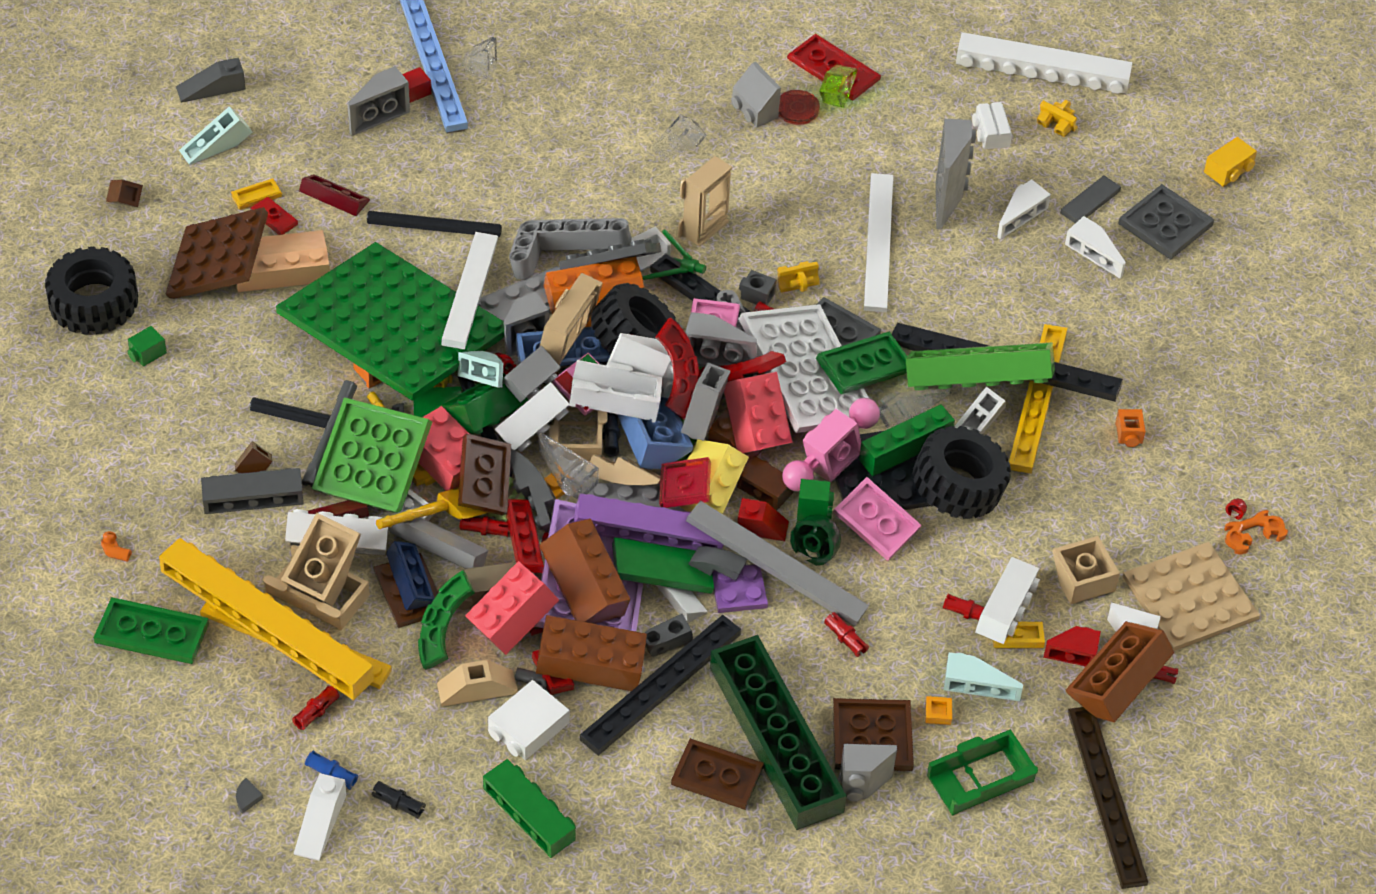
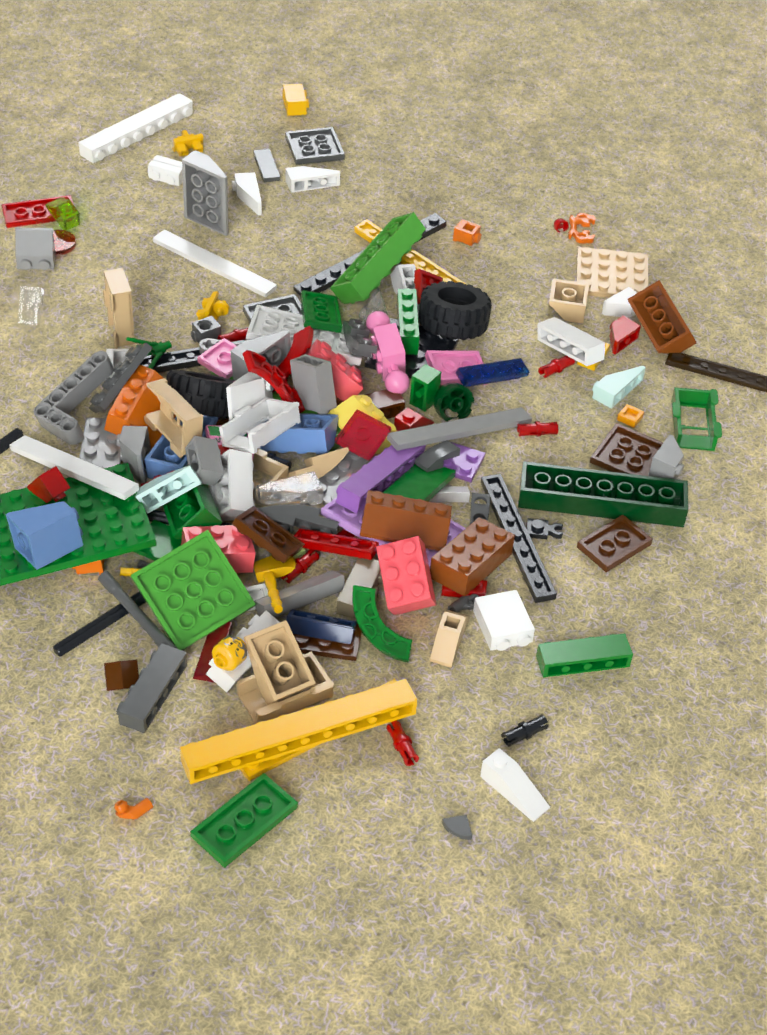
camera: 60 degrees left, 5 degrees down
(300, 514) = (229, 653): none -> yellow head
(330, 768) = (469, 759): blue pin -> none
(345, 310) = (45, 532): none -> medium blue slope
(422, 285) = (49, 486): none -> red slope
(691, 700) = (540, 529): none -> plate
(810, 414) = (357, 338): none -> dark grey slope
(898, 553) = (492, 372): none -> clear blue plate
(989, 424) = (422, 280): none -> red wing

